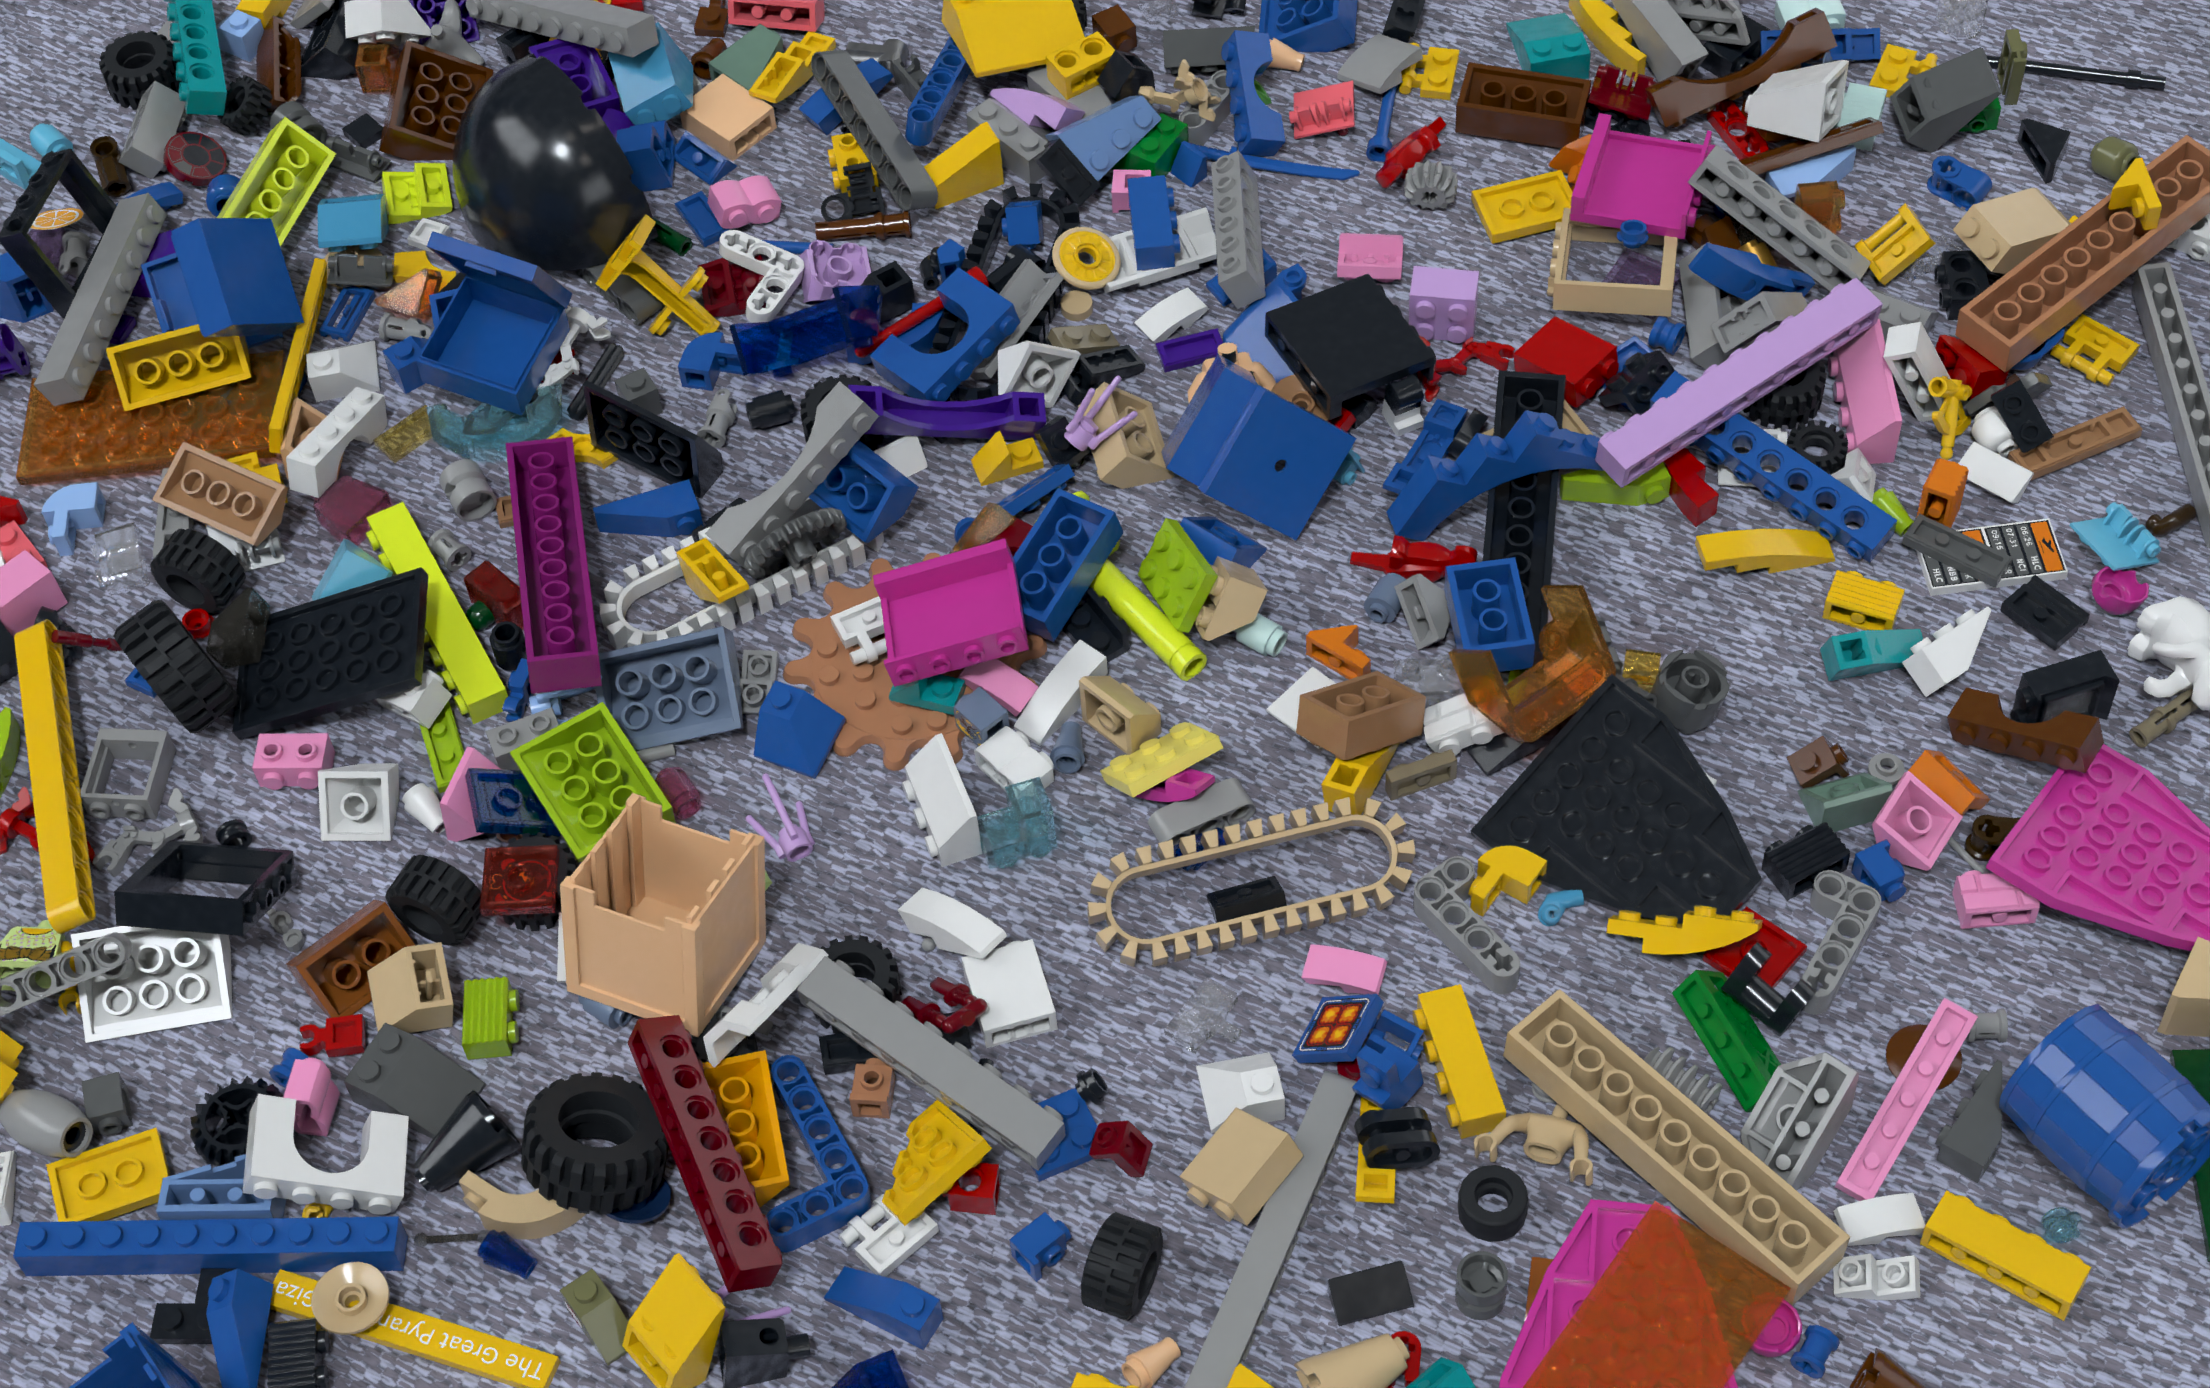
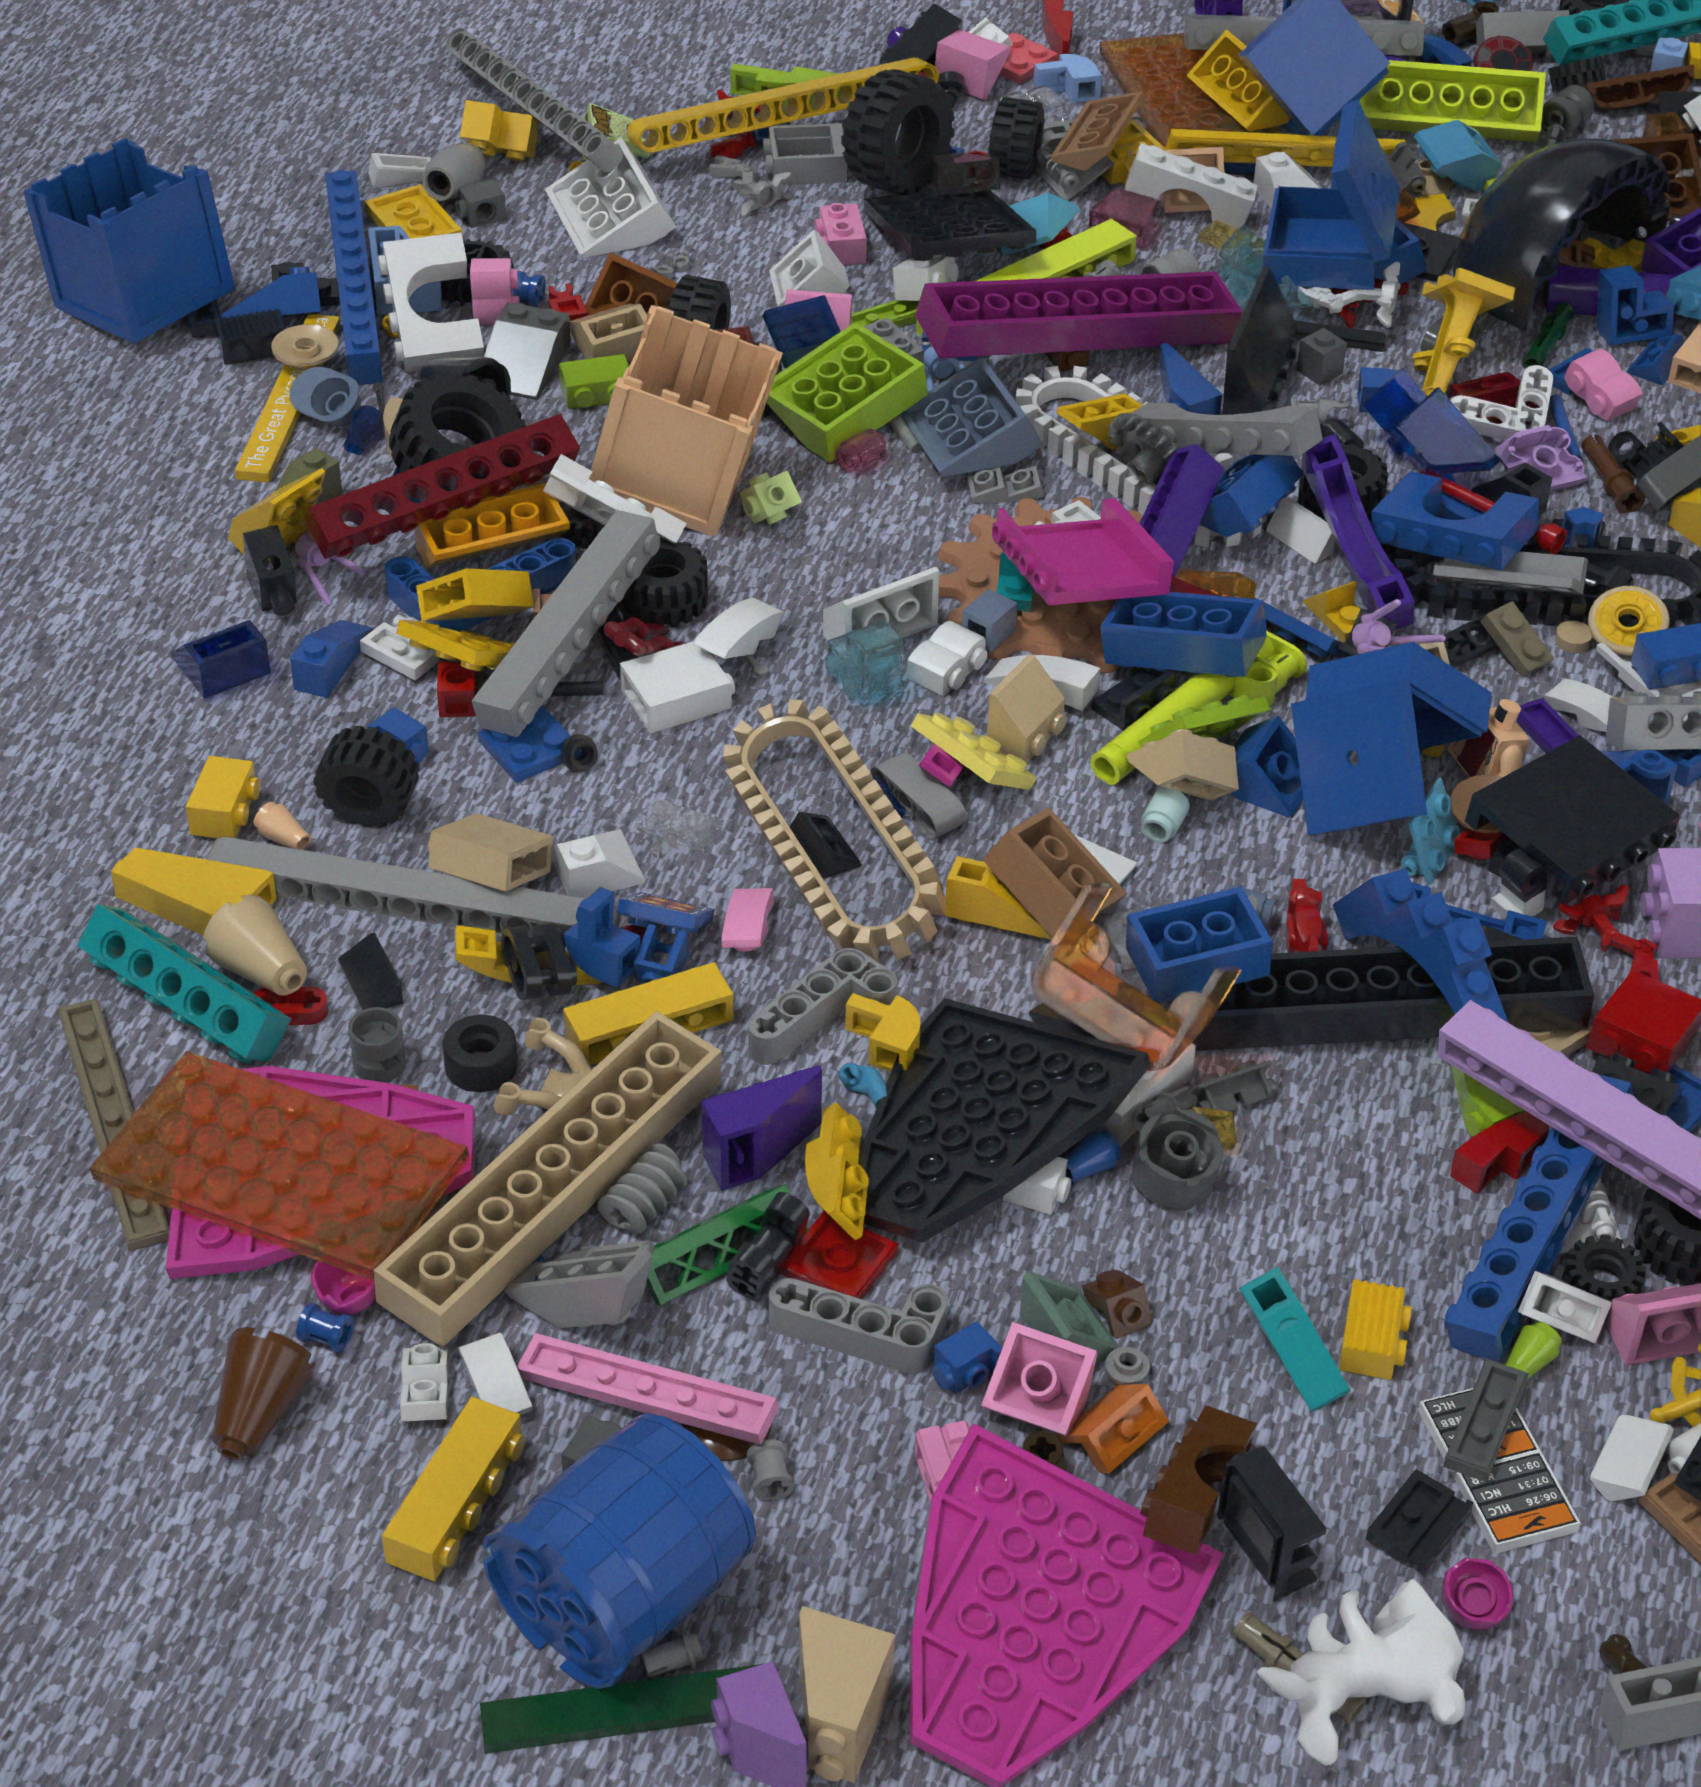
camera: 75 degrees right, 10 degrees down
(146, 904) = (716, 240): black window -> none
(234, 833) = (757, 219): black bush -> none
(450, 1281) = (326, 395): none -> sand blue piece
(793, 840) = (826, 528): lavender plant -> none
(796, 730) = (951, 507): blue slope -> none
(869, 1145) = (475, 594): none -> yellow slope
(879, 529) = (1181, 500): none -> dark purple brick
(1001, 683) = (1037, 627): bright pink slope -> none
(1023, 223) = (1661, 571): blue brick -> none
(1035, 369) = (1440, 595): white slope -> none
(1068, 749) = (972, 693): sand blue cone -> none
(1109, 363) = (1493, 663): black plate -> none
(1123, 1145) = (510, 779): dark red bracket -> none
(1336, 650) = (1158, 873): orange slope -> none
(1421, 774) = (1008, 952): dark tan plate -> none
(1628, 982) = (759, 1125): none -> dark purple slope
(1763, 548) = (1421, 1224): yellow slope -> none
(1799, 860) = (972, 1287): black brick -> none
(1943, 492) = (1557, 1387): orange brick -> none
(1949, 655) = (1309, 1410): white slope -> none
(2119, 539) = (1560, 1591): medium azure hinge -> none

